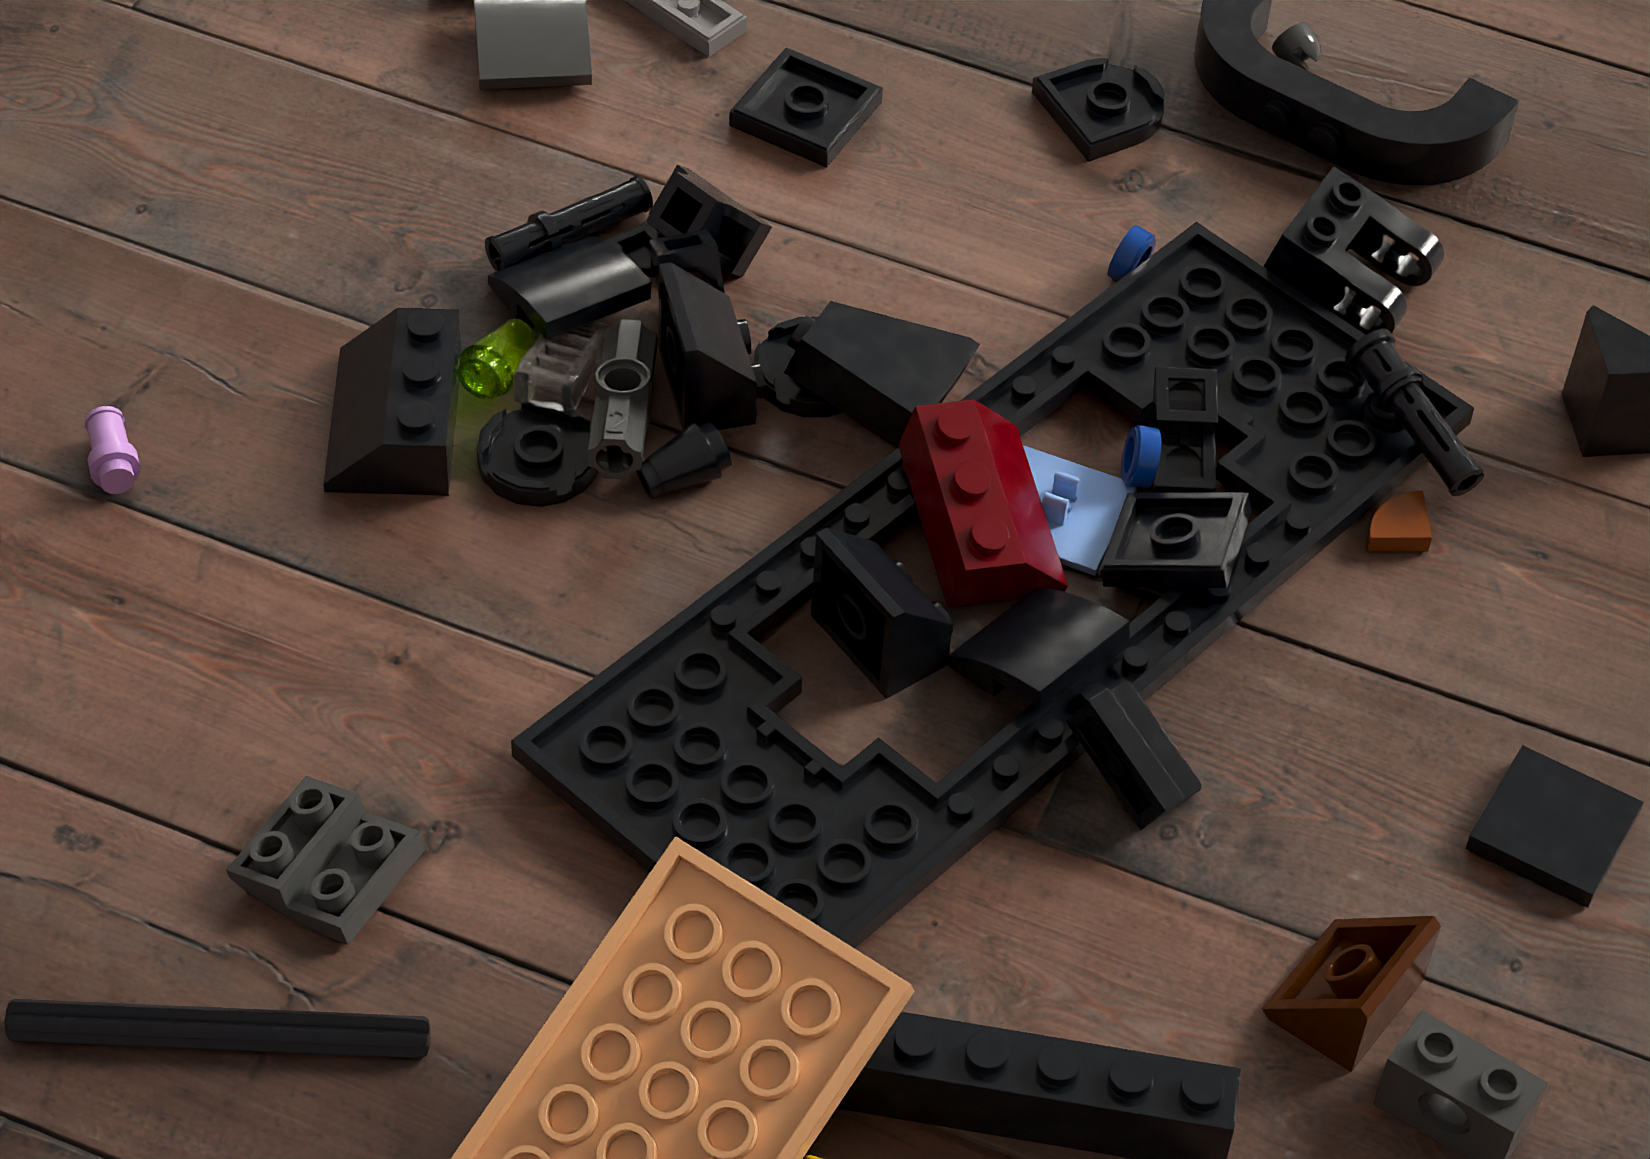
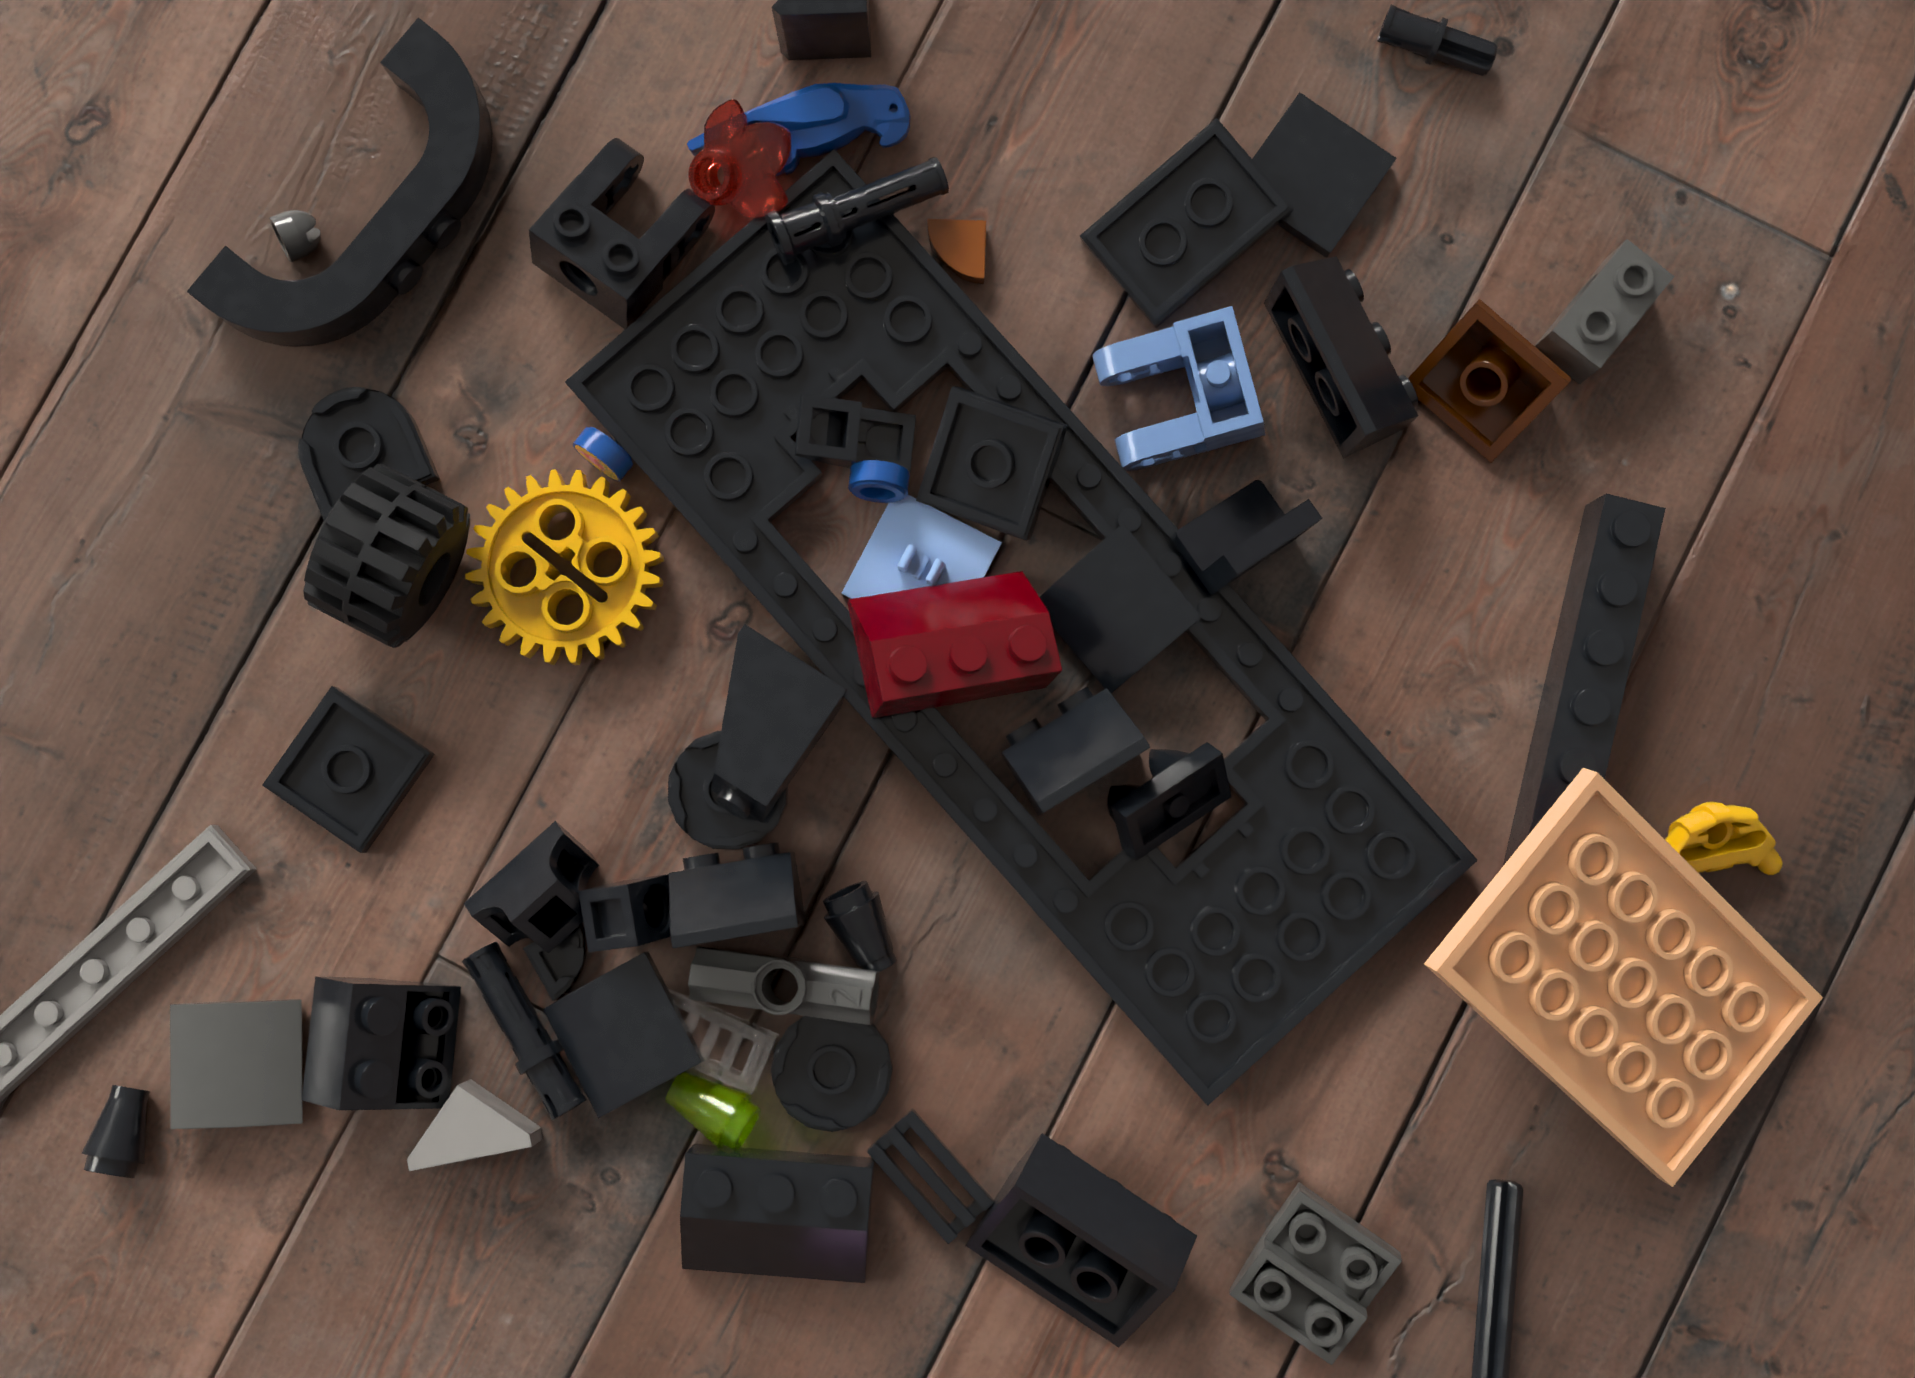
camera: 85 degrees left, 35 degrees up
(370, 644) = (1083, 1241): none -> black slope
(424, 526) = (964, 1214): none -> black tile
(479, 186) = (471, 1127): none -> light grey slope
(553, 127) = (380, 1044): none -> black slope
(838, 684) = (1177, 795): none -> black tile
(1007, 89) = (386, 555): none -> black wheel
(1016, 234) = (532, 608): none -> yellow gear
(1295, 723) = (1218, 379): none -> medium blue brick
(1352, 825) = (1341, 354): none -> black slope
(1447, 334) = (748, 159): none -> clear red plate
(1471, 705) = (1186, 222): none -> black tile
(1501, 394) = (830, 118): none -> blue animal

